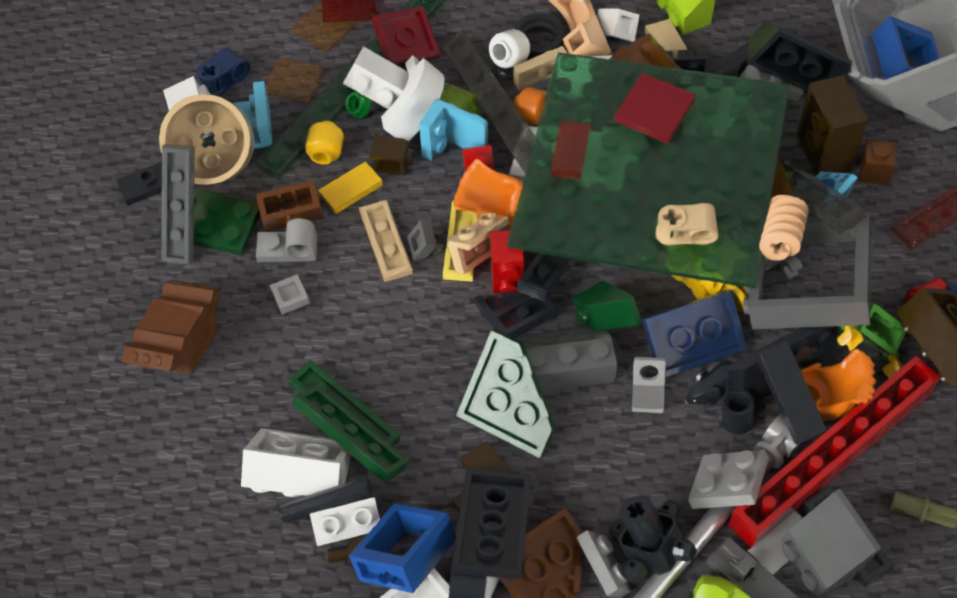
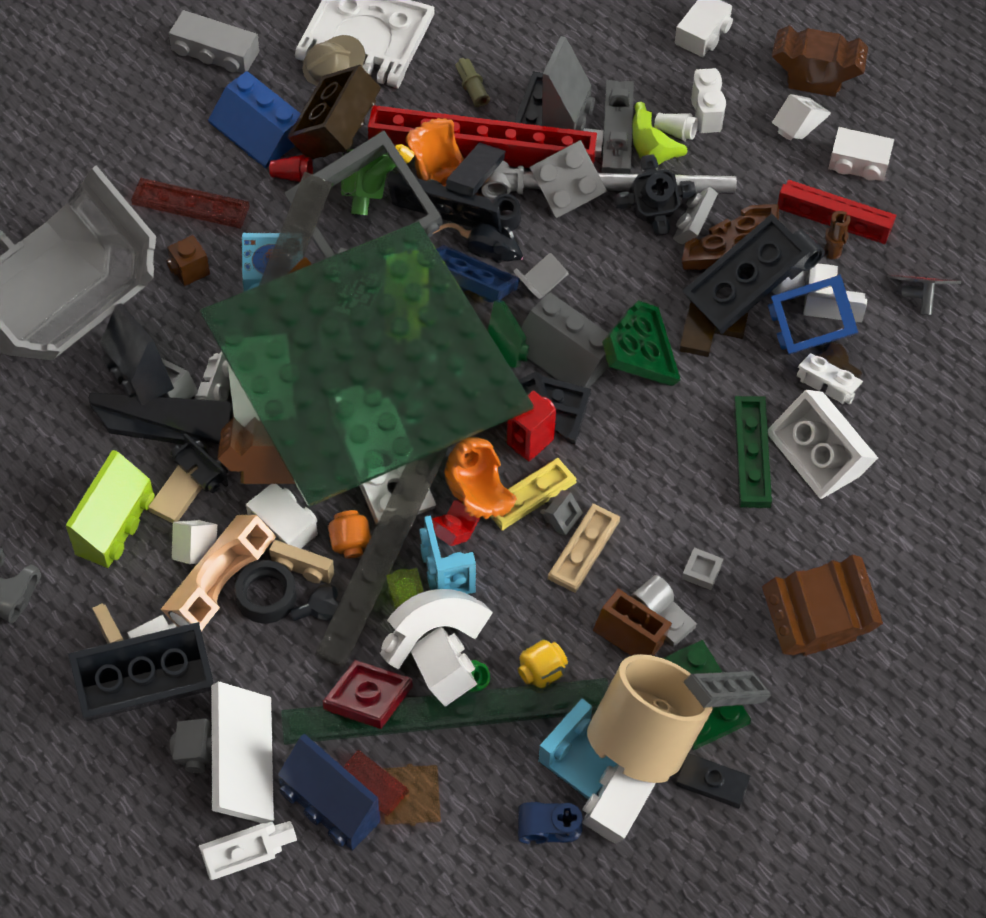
camera: 135 degrees left, 0 degrees up
(293, 80) = (494, 764): clear orange piece -> none
(325, 499) = (832, 391): black axle -> none
(350, 187) = (561, 615): yellow tile -> none
(350, 433) = (771, 417): dark green plate -> none
(391, 155) = (505, 603): dark brown window -> none
(473, 242) = (532, 451): tan bracket -> none
(509, 48) = (314, 583): white head -> none
(570, 149) = (411, 410): clear red tile -> none
(655, 108) = (315, 378): dark red tile -> none
(689, 224) = (415, 279): tan piece -> none
(783, 227) = (349, 231): light nougat piece -> none
(831, 126) = (193, 282): dark brown brick -> none
(893, 44) = (61, 288): blue window -> none

